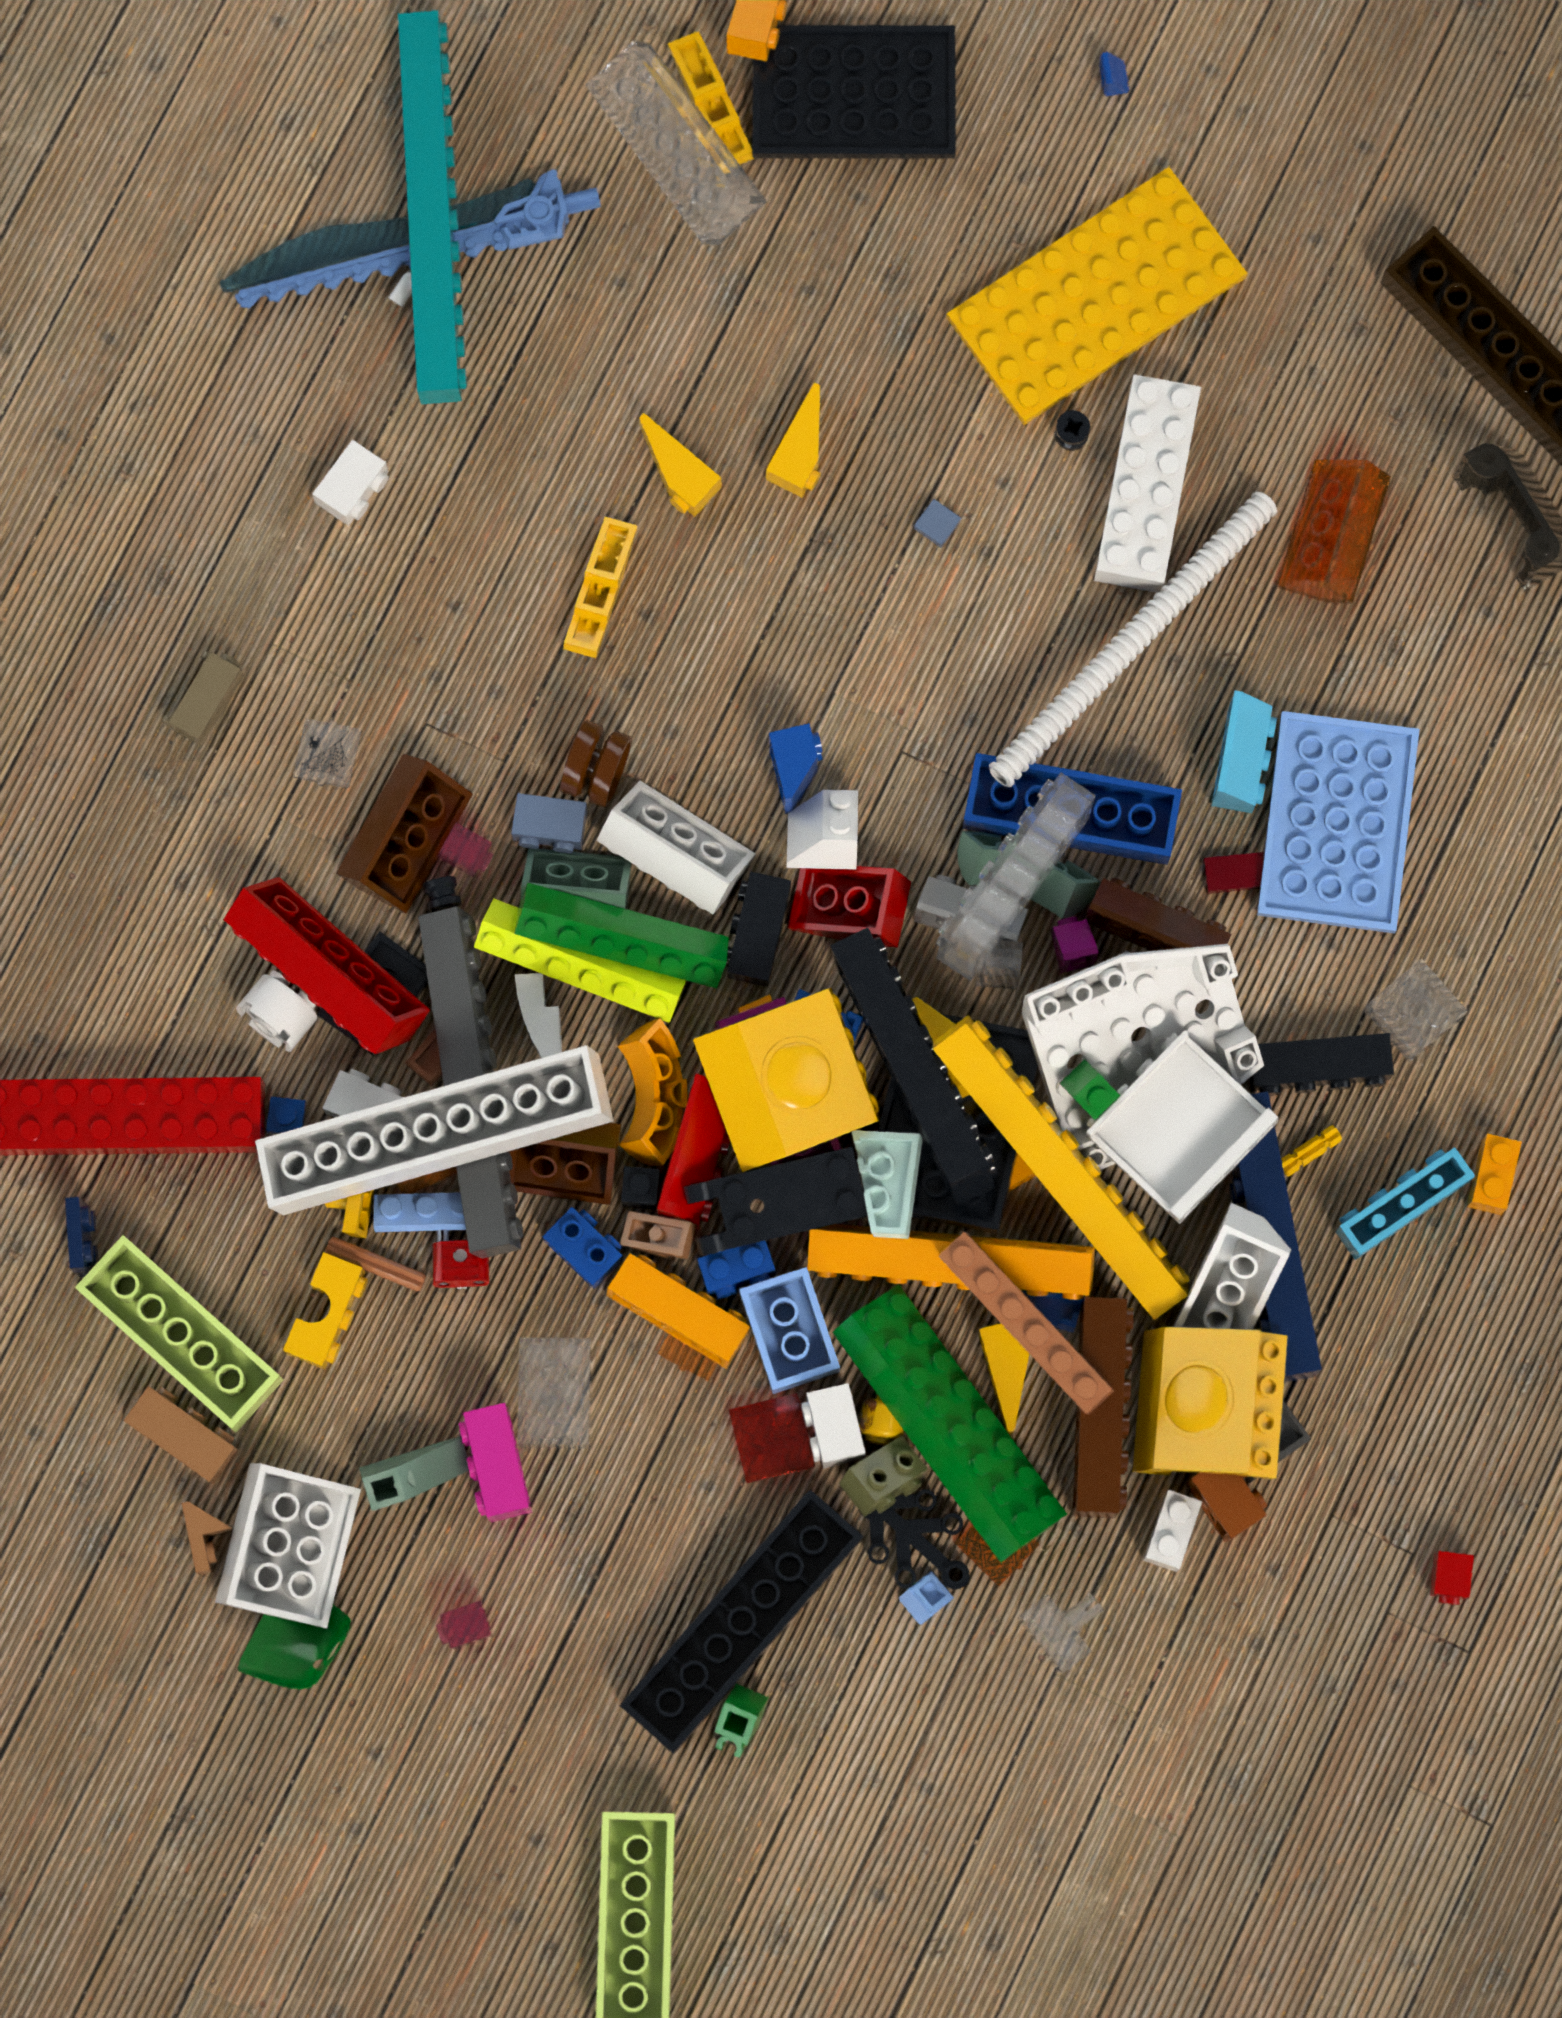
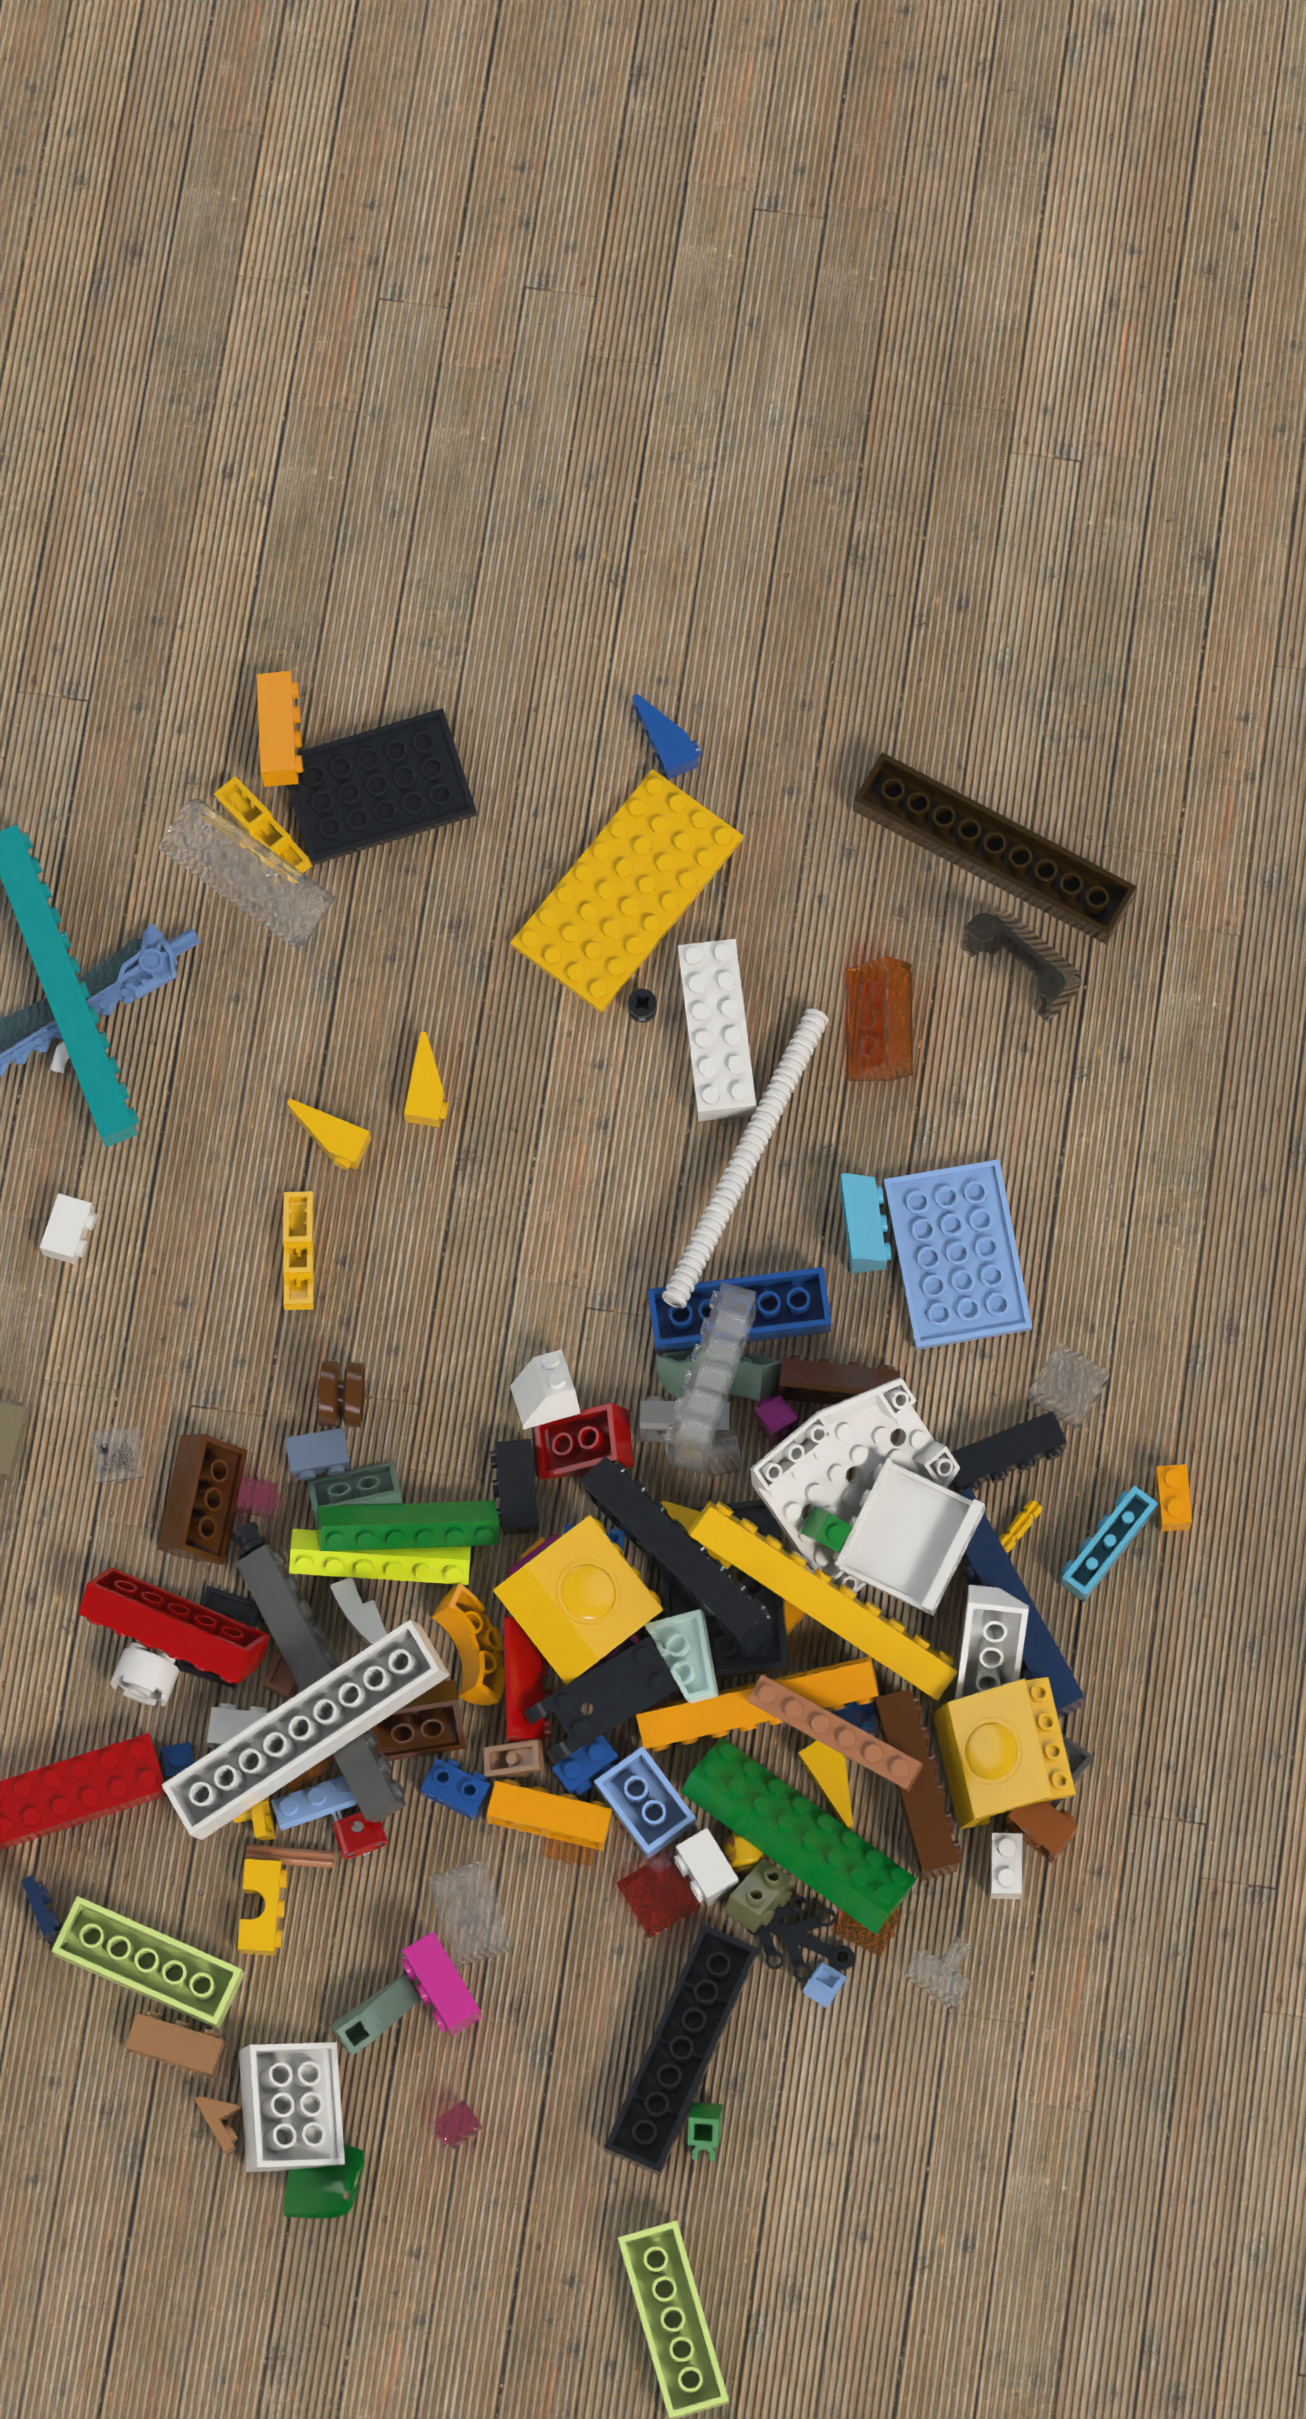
camera: 15 degrees left, 5 degrees down
(640, 1187) = (487, 1725): black brick -> none
(675, 847) = (427, 1441): white slope -> none
(795, 761) = (502, 1342): blue slope -> none
(937, 523) = (556, 1114): sand blue tile -> none
(1113, 75) = (583, 709): blue slope -> none
(1197, 140) = (669, 741): none -> blue slope
(1233, 872) = (886, 1321): dark red tile -> none
(1451, 1577) = (1242, 1831): red brick -> none

